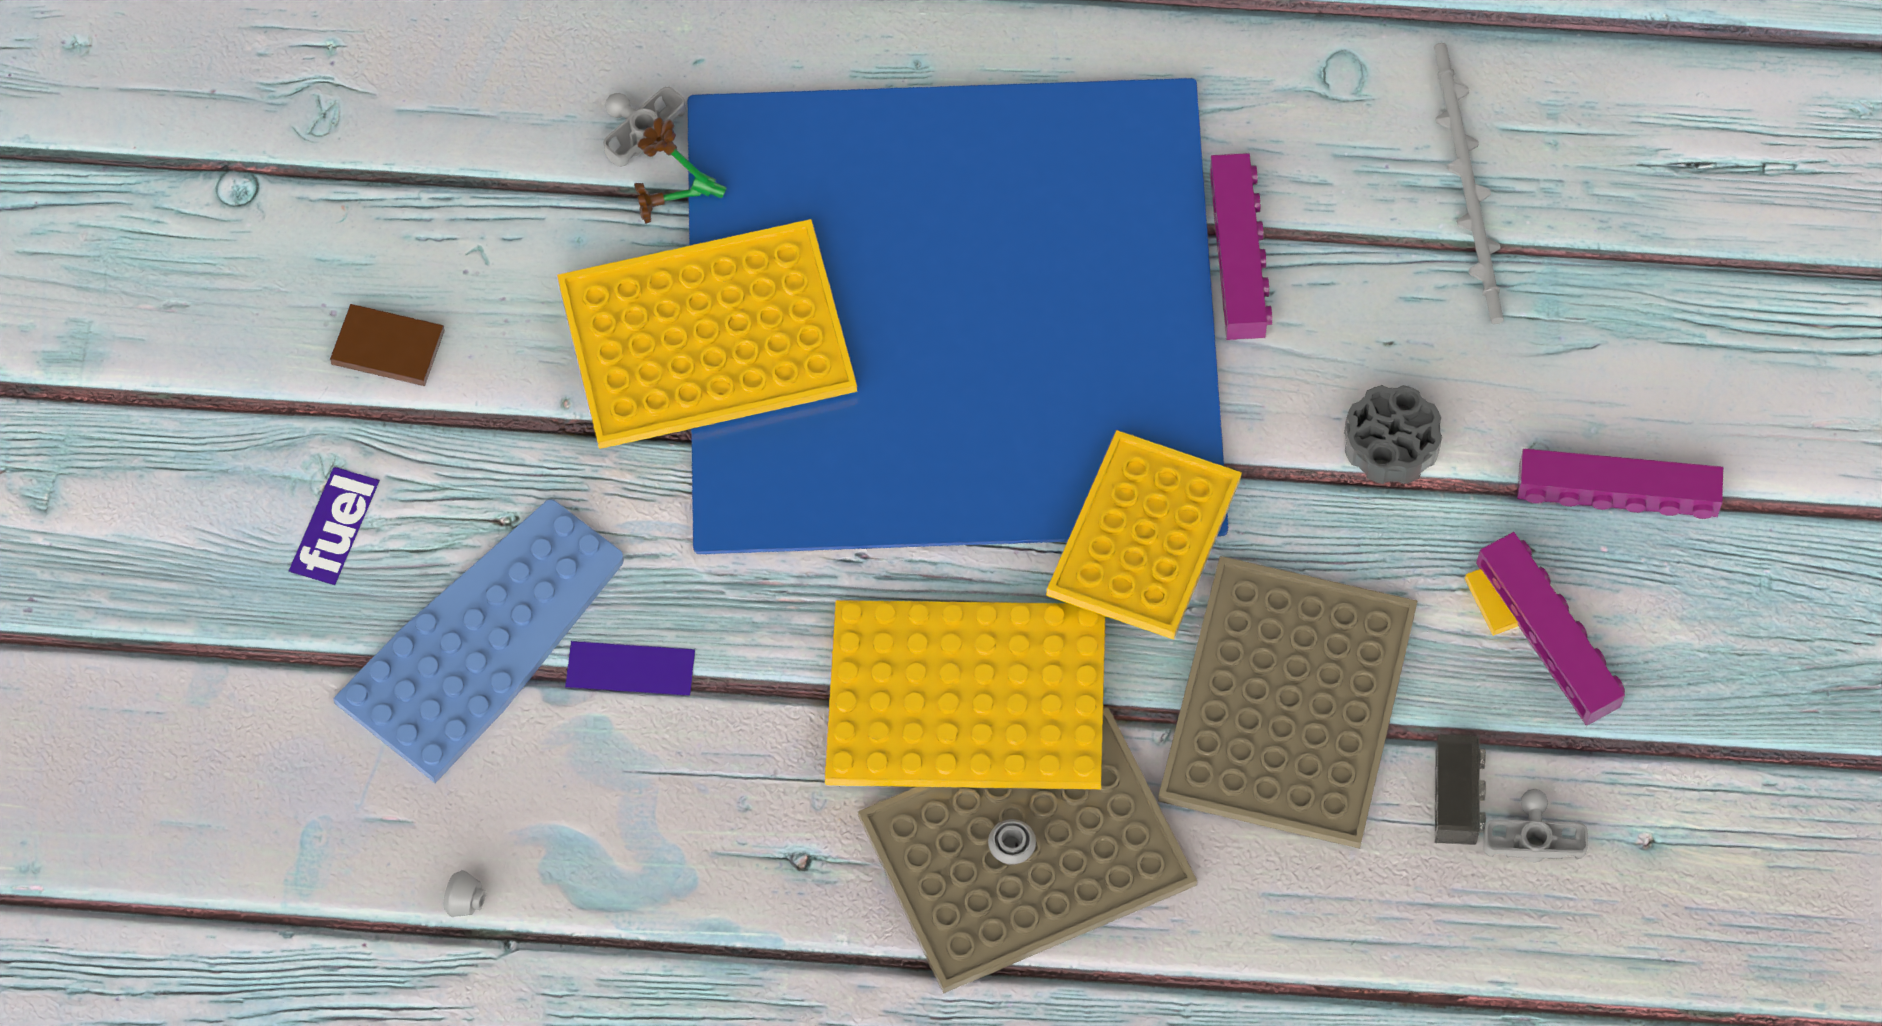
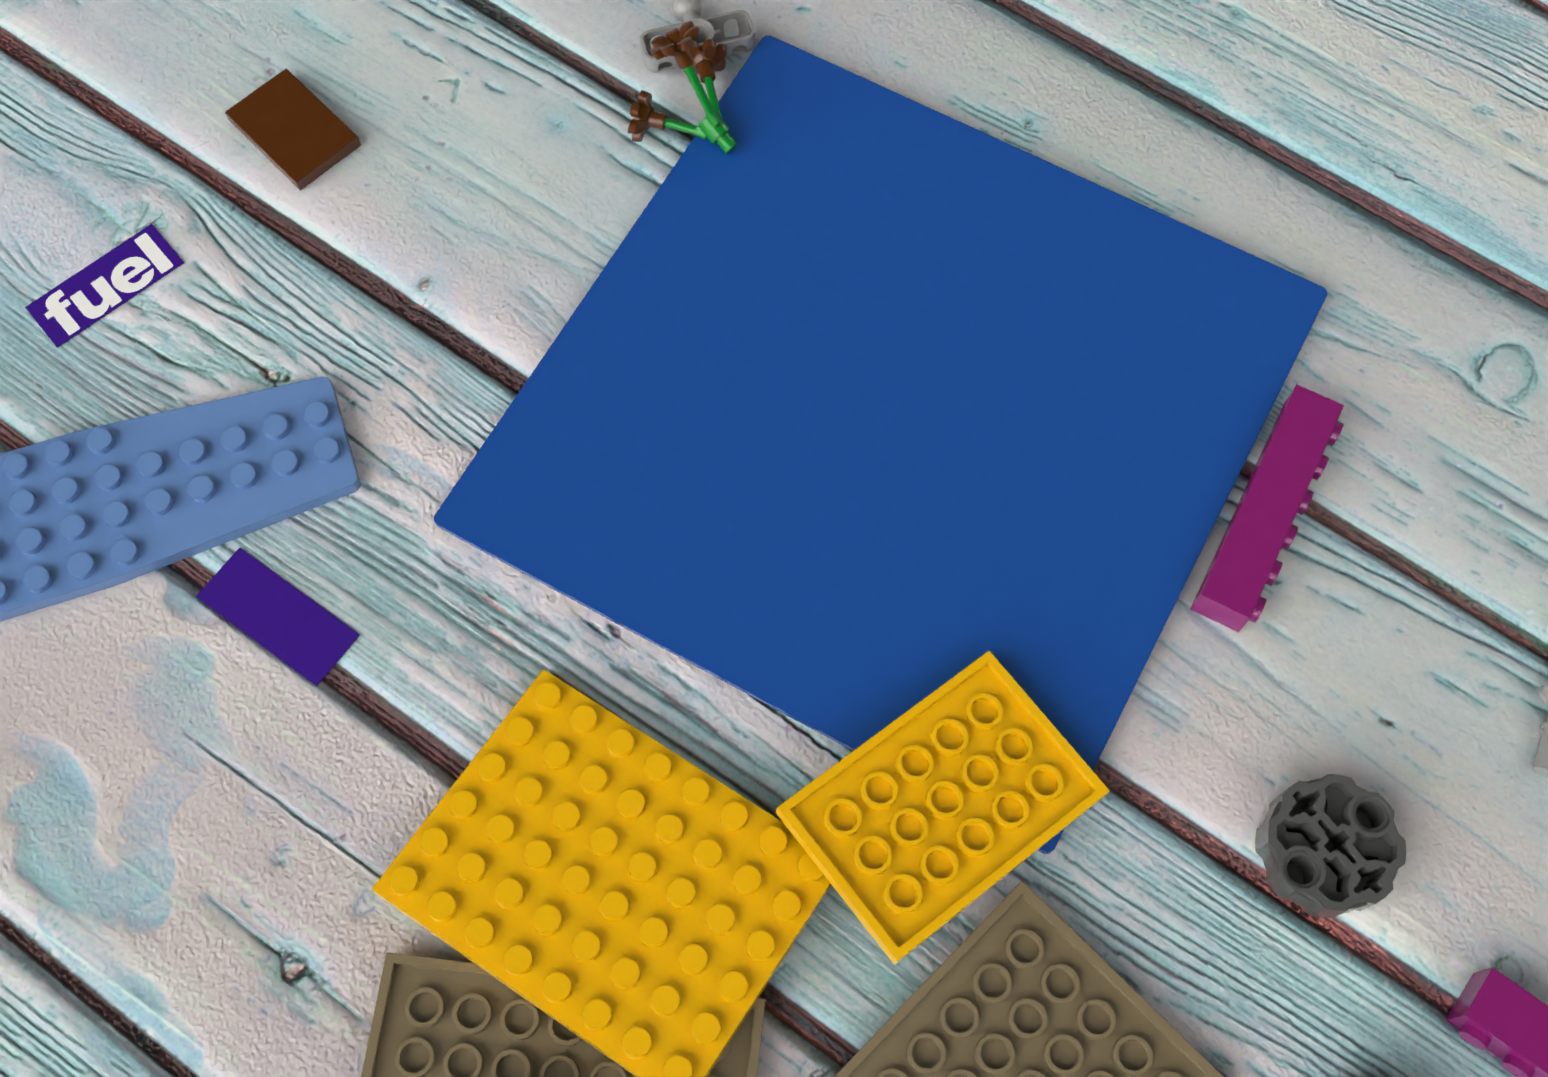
camera: 30 degrees right, 5 degrees up
(706, 333) = (608, 289): yellow plate -> none

